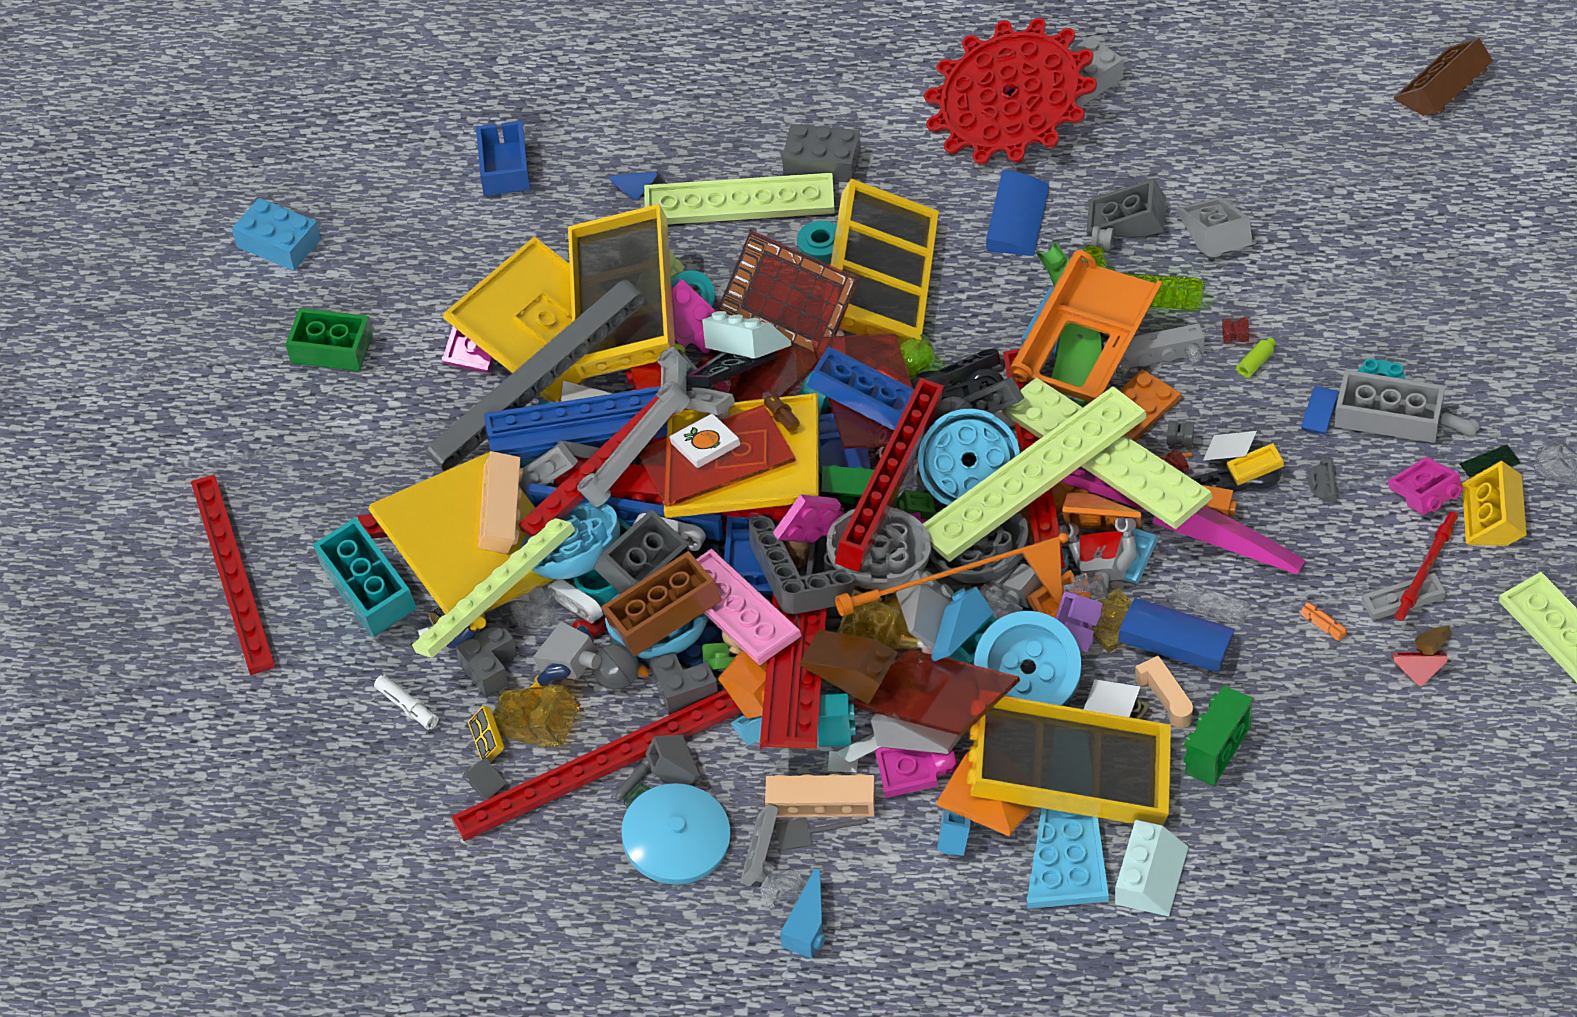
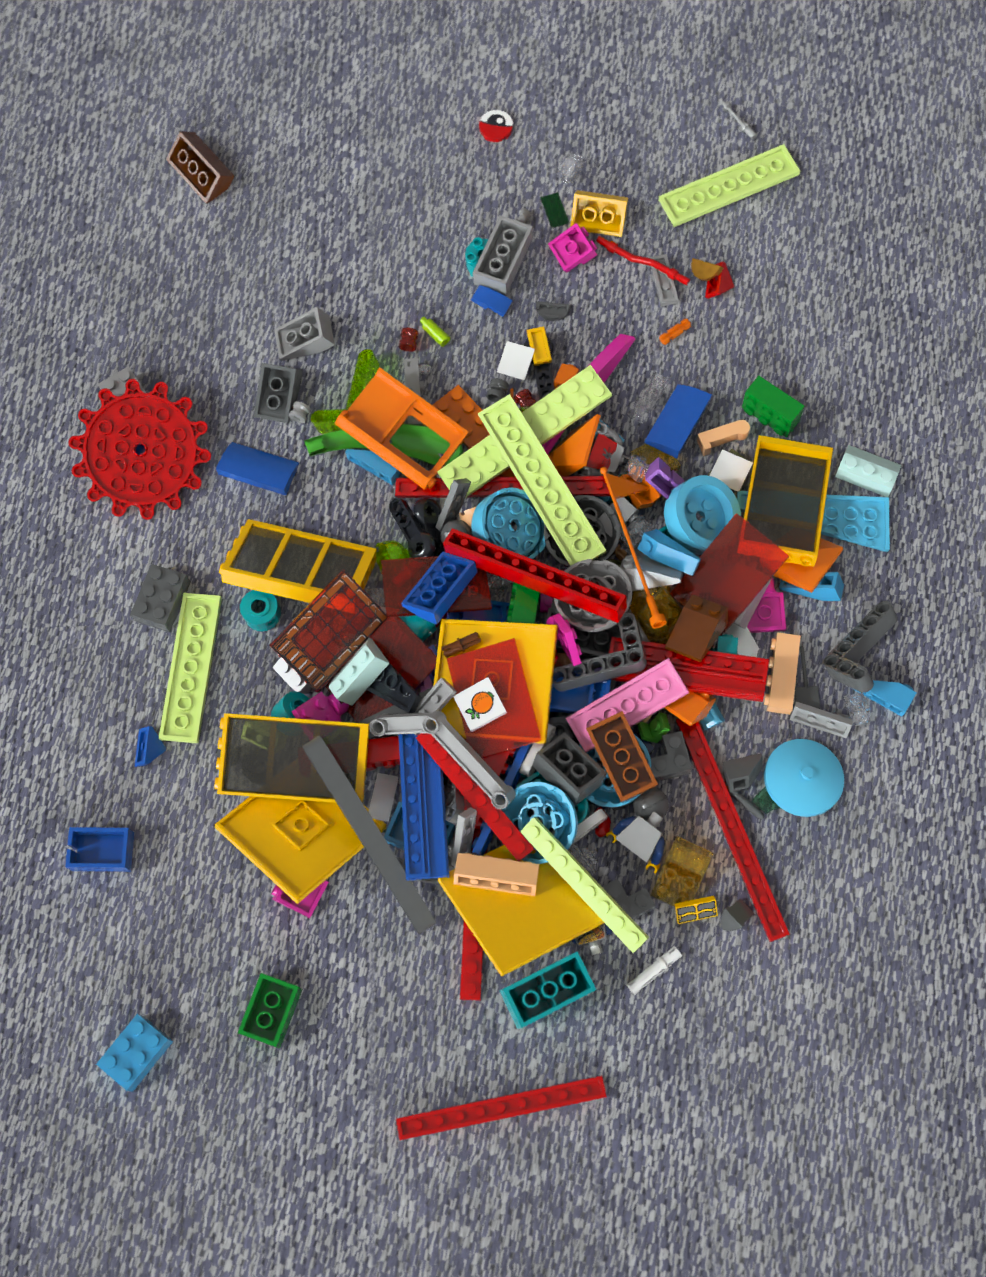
camera: 80 degrees left, 20 degrees up
(871, 872) = (843, 659): none -> dark grey beam

